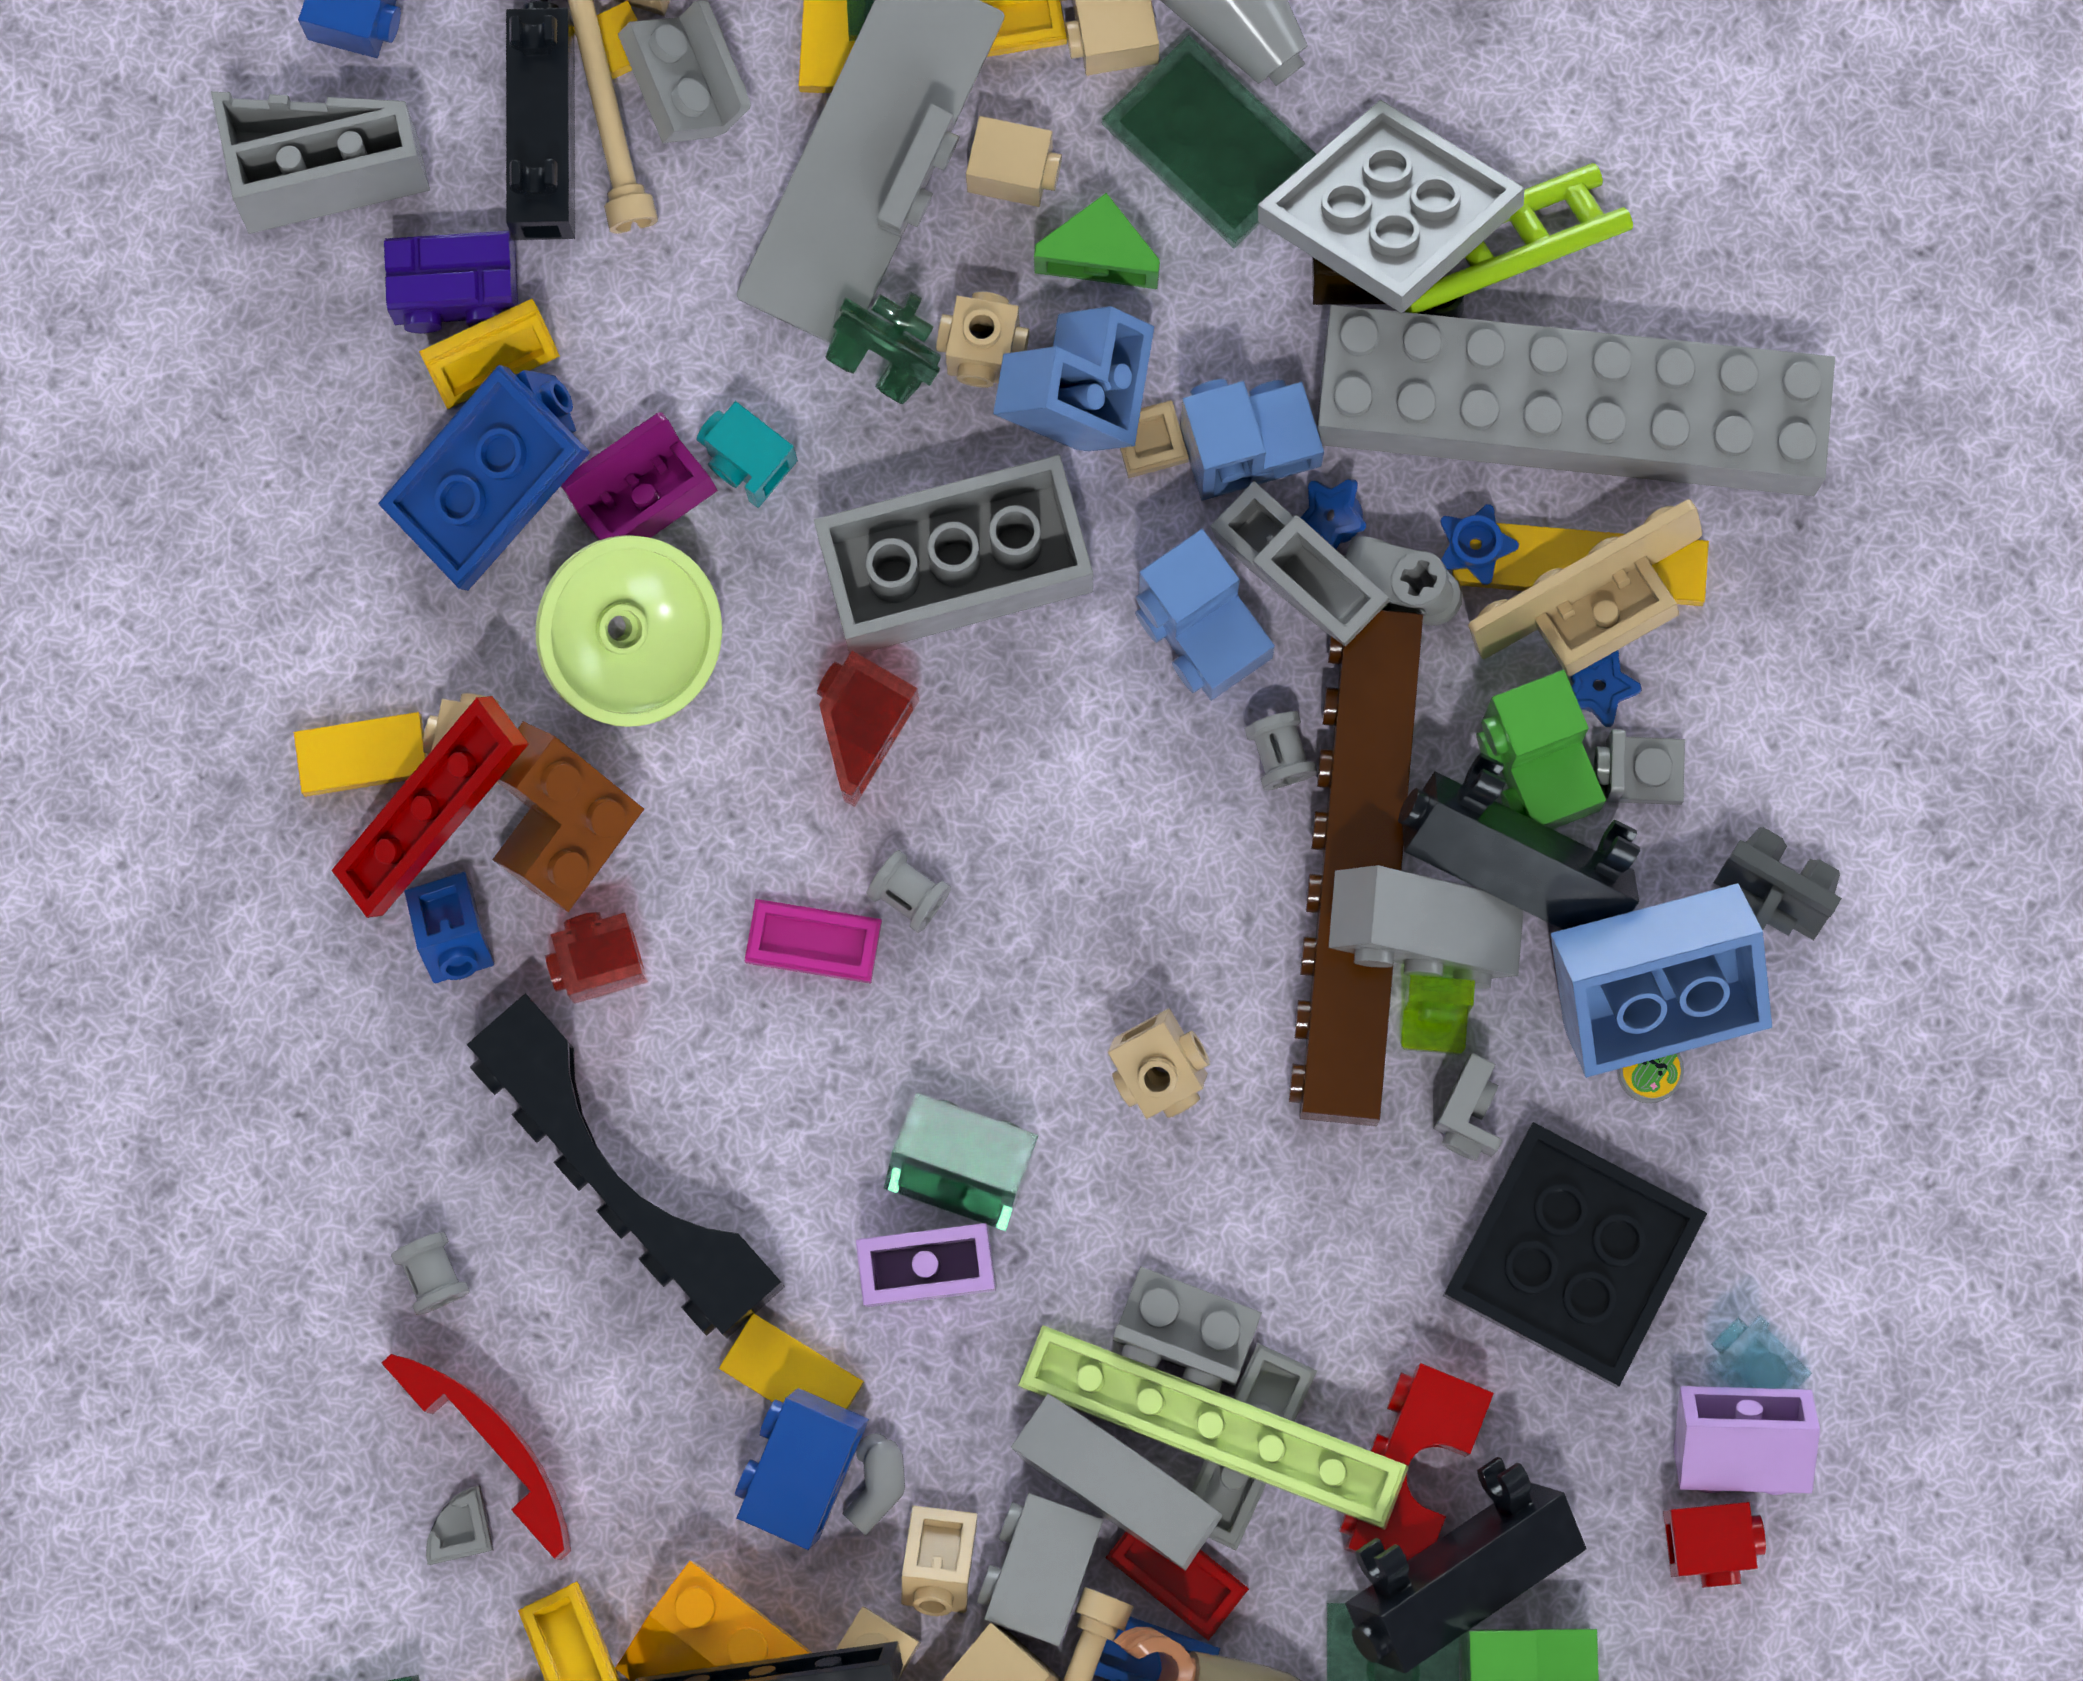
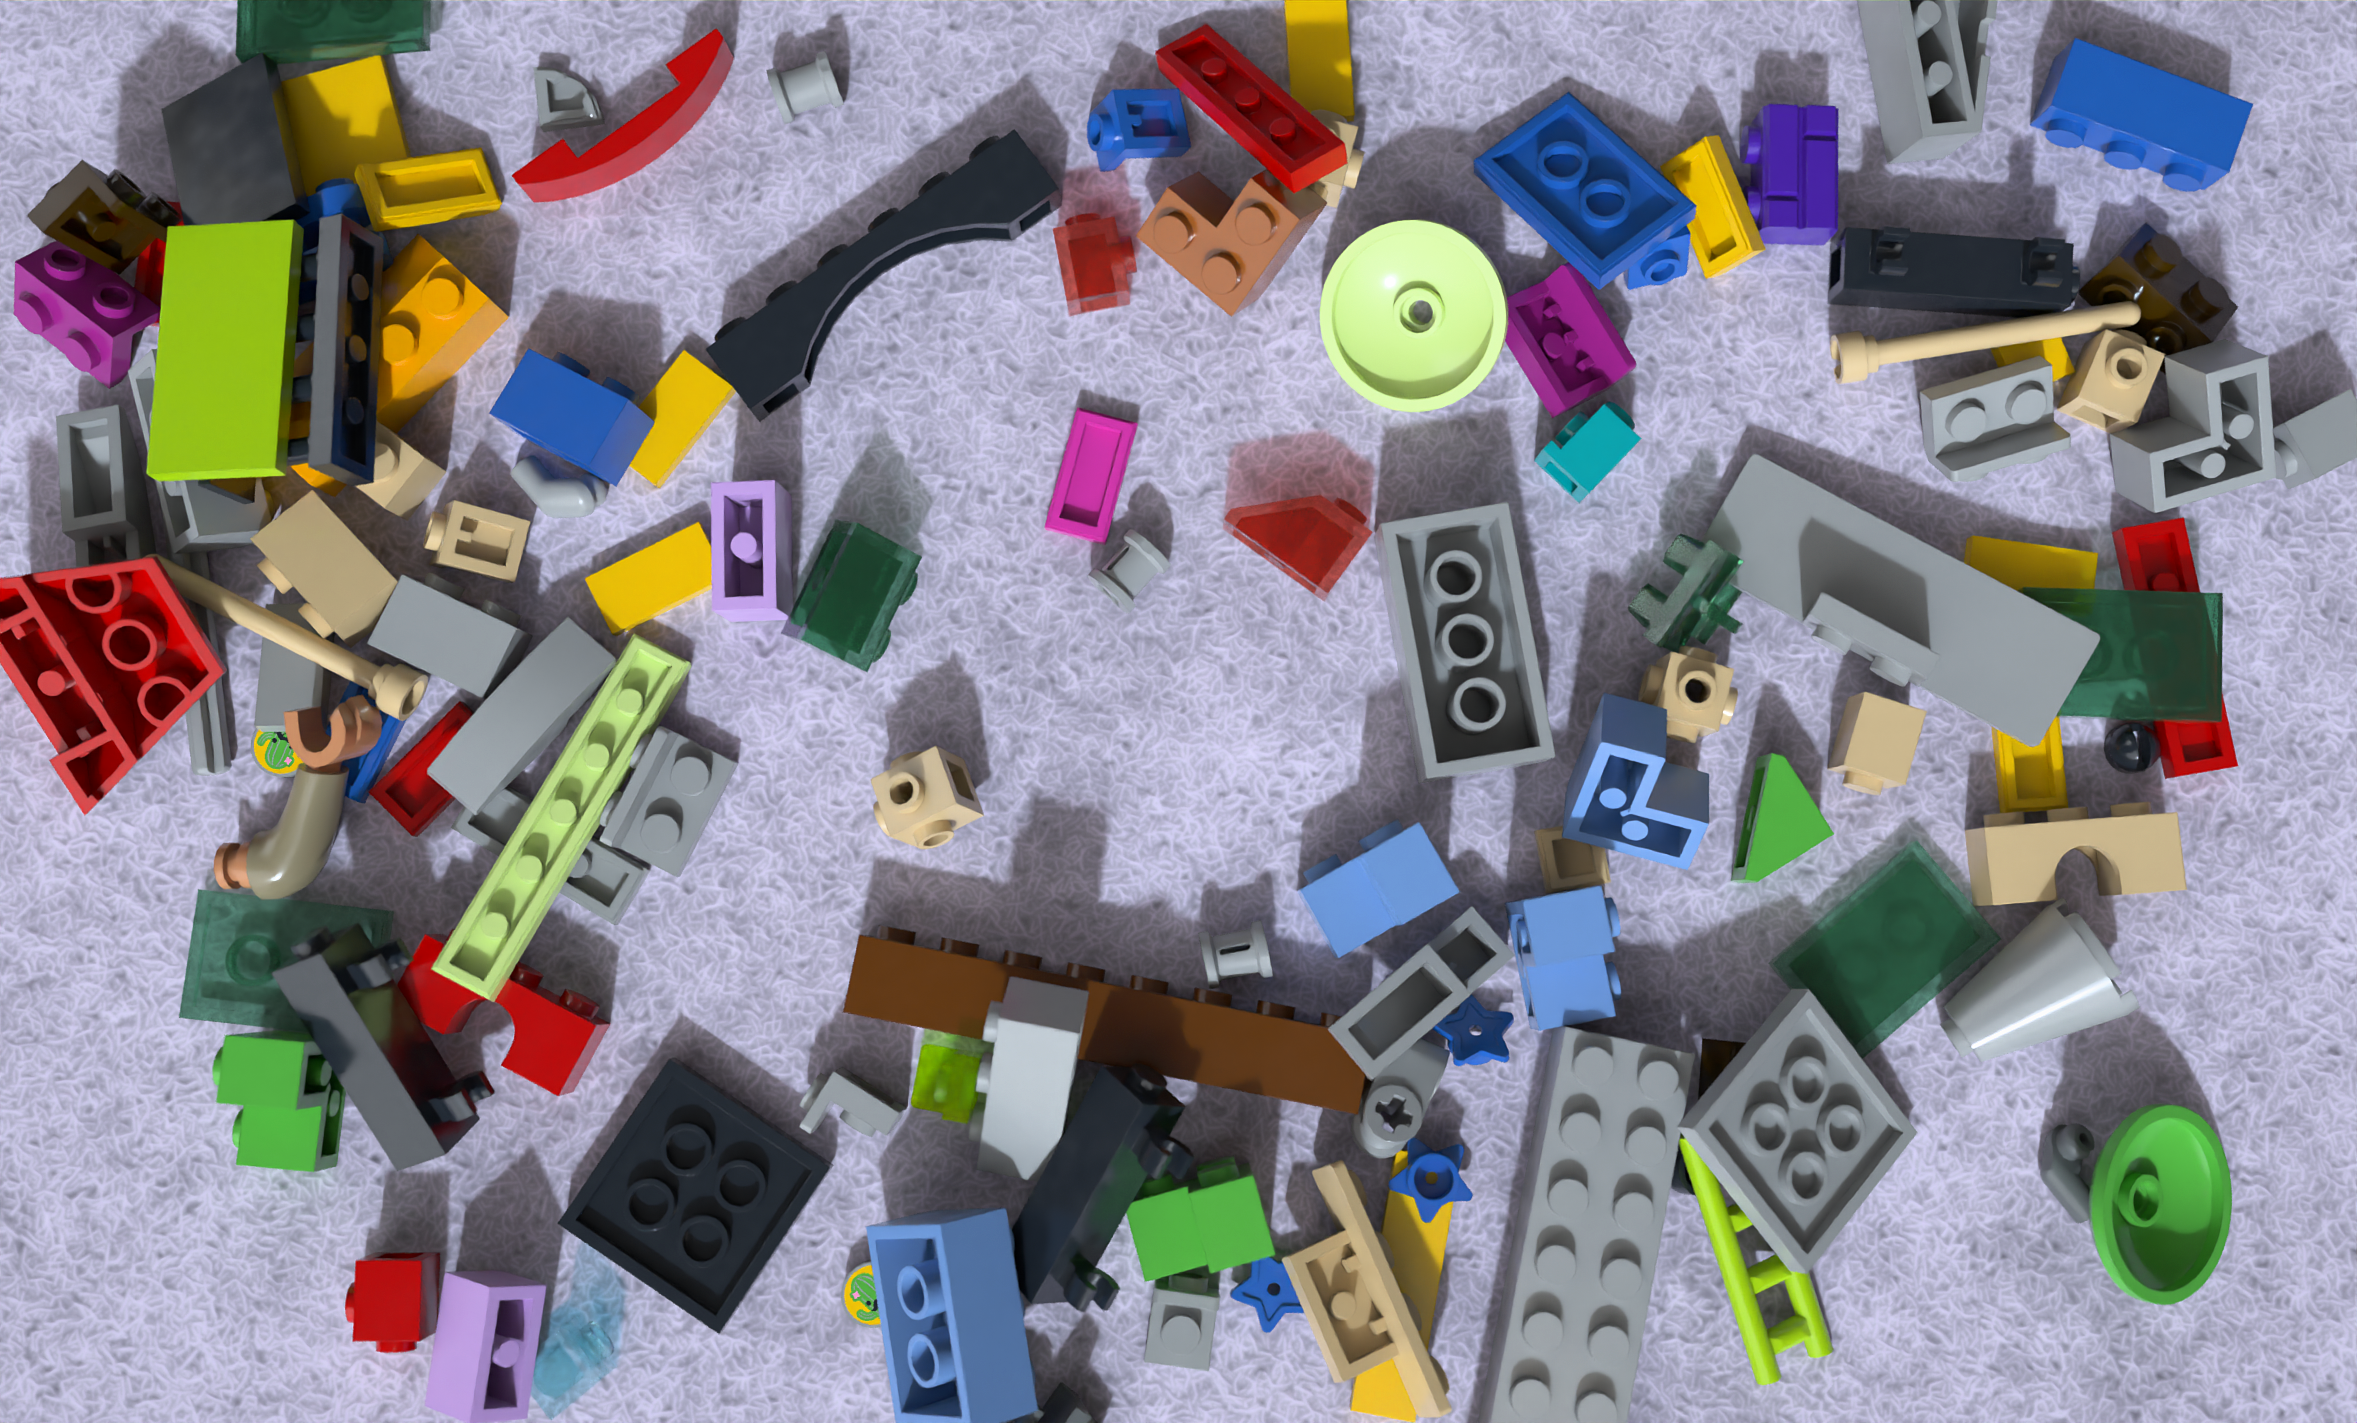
camera: 90 degrees right, 5 degrees up
(959, 1370) = (654, 579): none -> yellow tile

